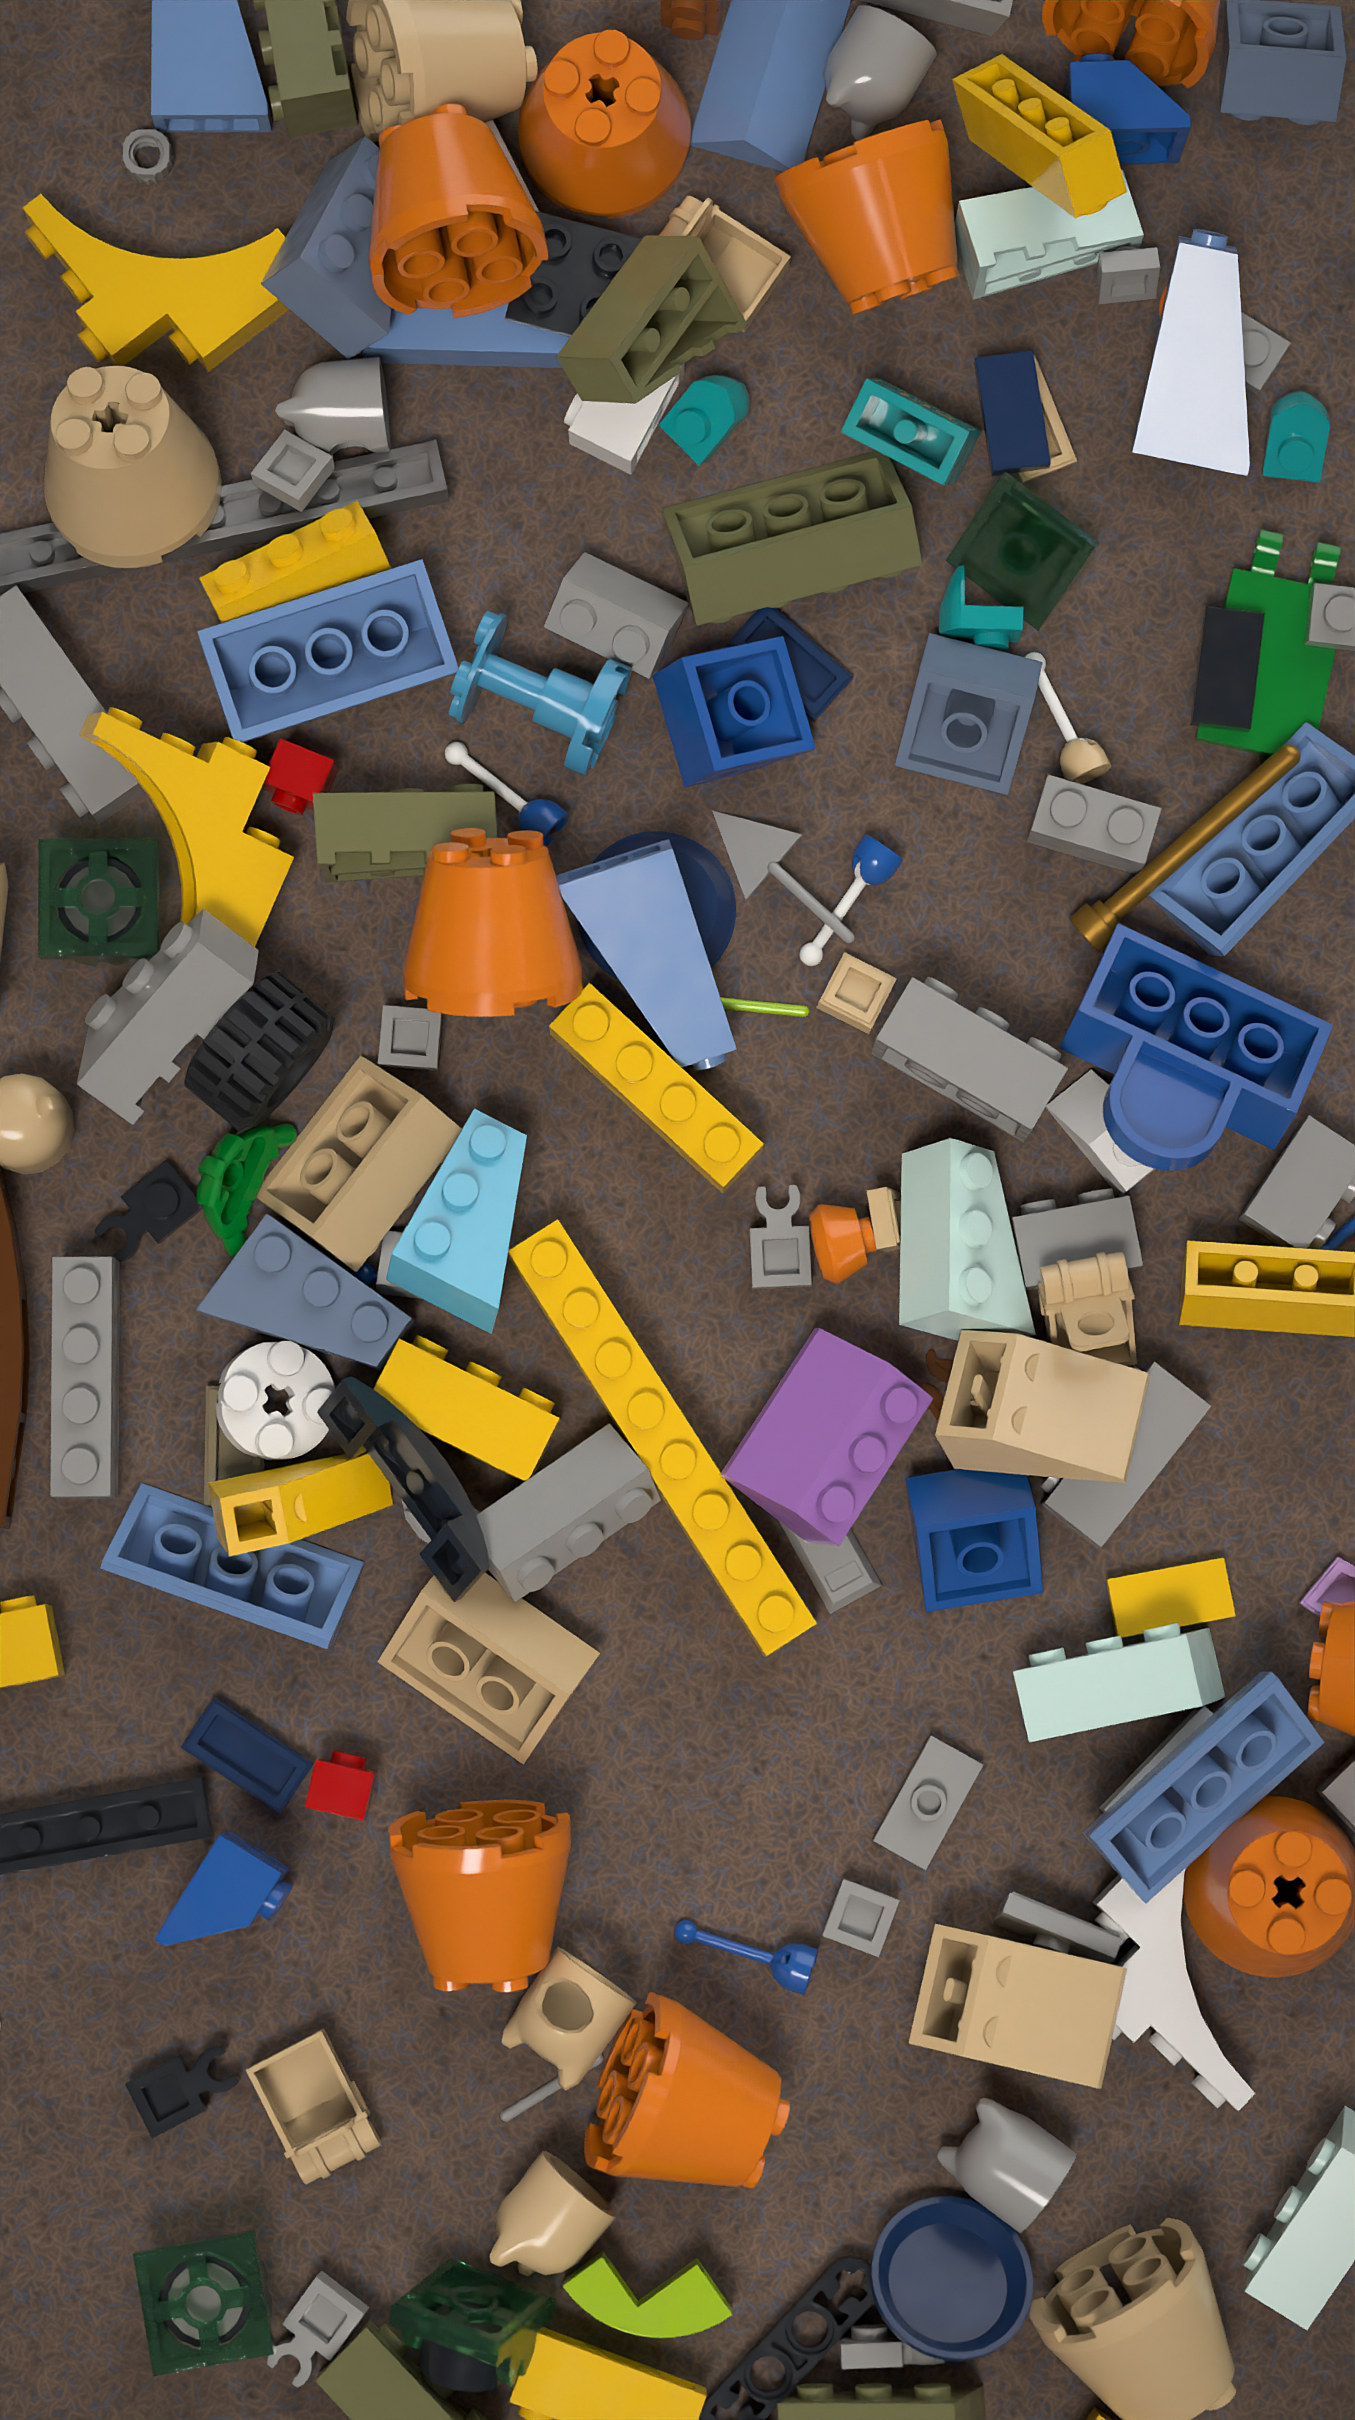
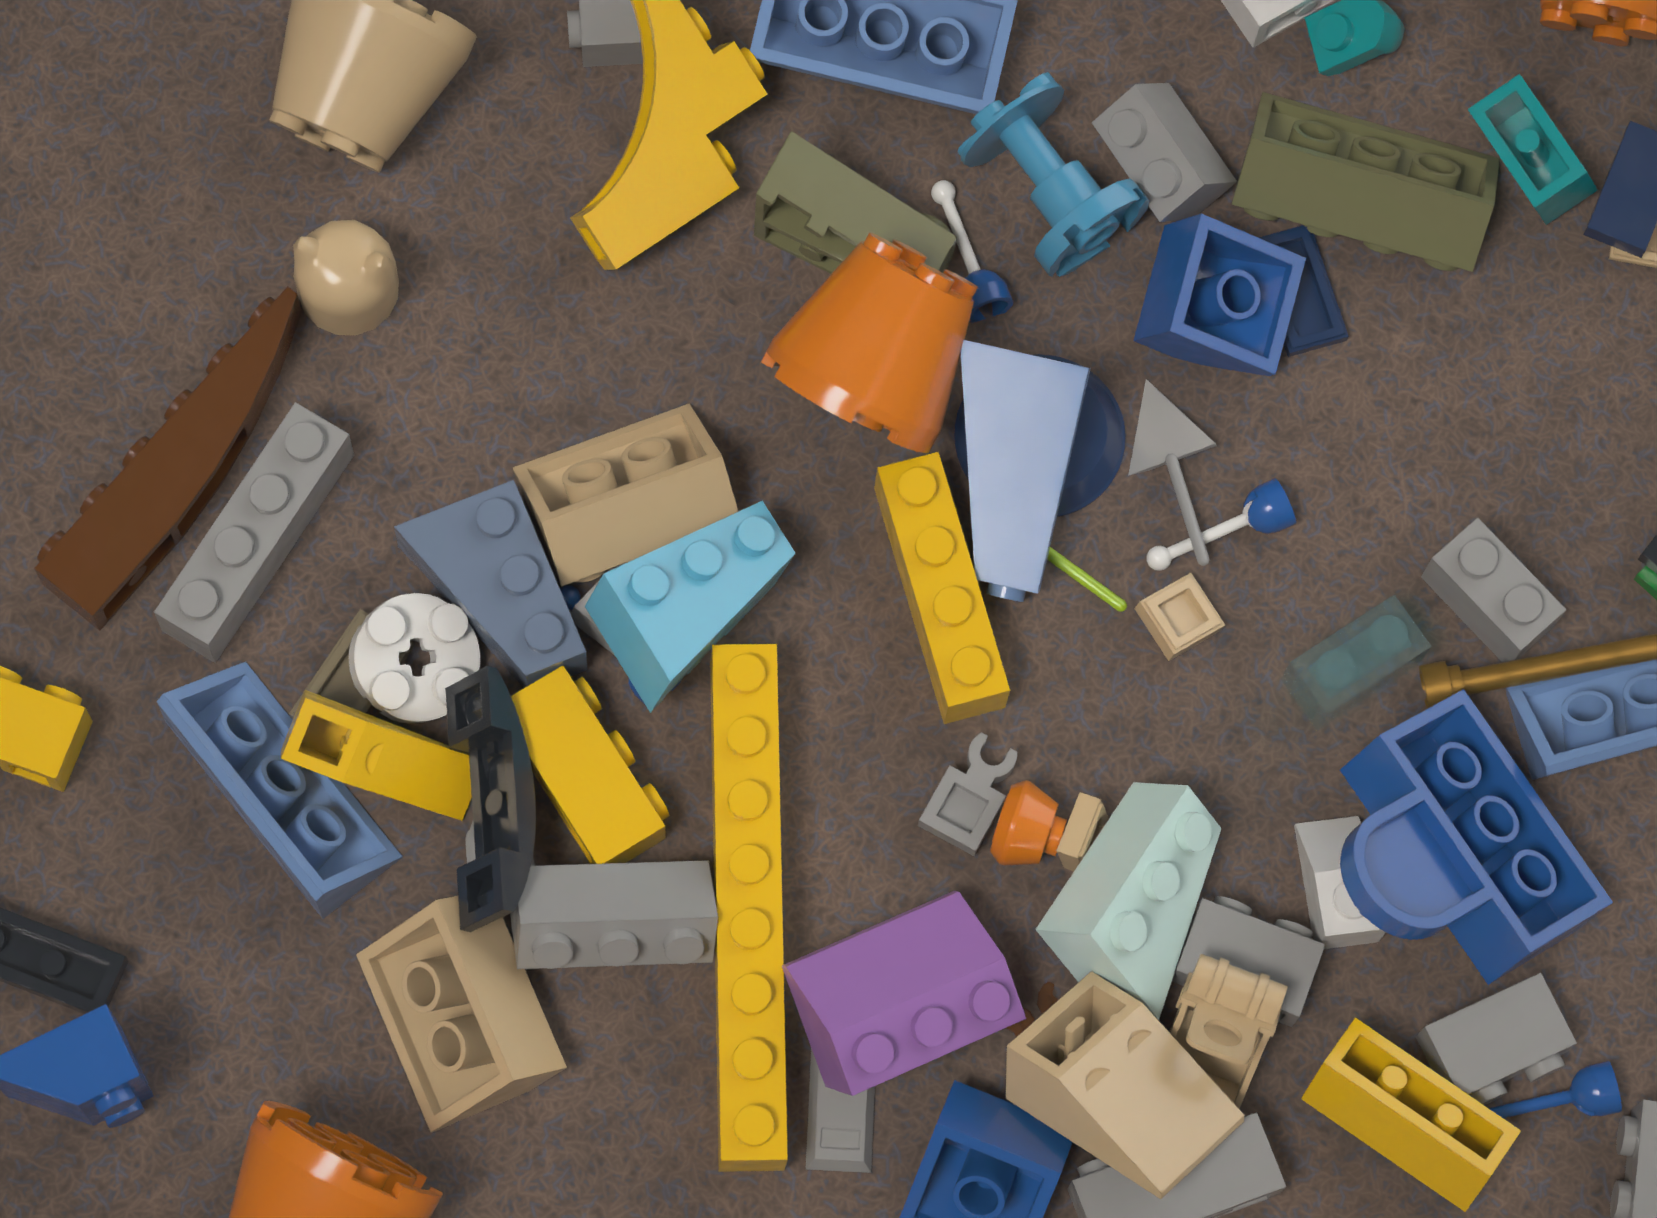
camera: 25 degrees right, 10 degrees down
(98, 900) = (541, 125): clear green piece -> none
(157, 1206) = (420, 424): black plate -> none
(161, 1010) = (535, 244): light grey wedge -> none
(234, 1178) = (507, 436): green piece -> none
(247, 1755) = (181, 966): dark blue tile -> none
(259, 1051) = (598, 333): black tyre -> none
(296, 775) = (782, 112): red plate -> none
(341, 1786) = (249, 1044): red plate -> none
(410, 1038) = (744, 412): light grey plate -> none
(968, 713) = (1435, 428): sand blue slope -> none
(969, 1057) = (1250, 728): light grey brick -> none
(985, 625) = (1498, 359): teal plate -> none
(1019, 949) = (1355, 662): none -> clear light blue brick
(1023, 551) = (1574, 315): clear green slope -> none
(1081, 757) = (1516, 523): tan hinge -> none

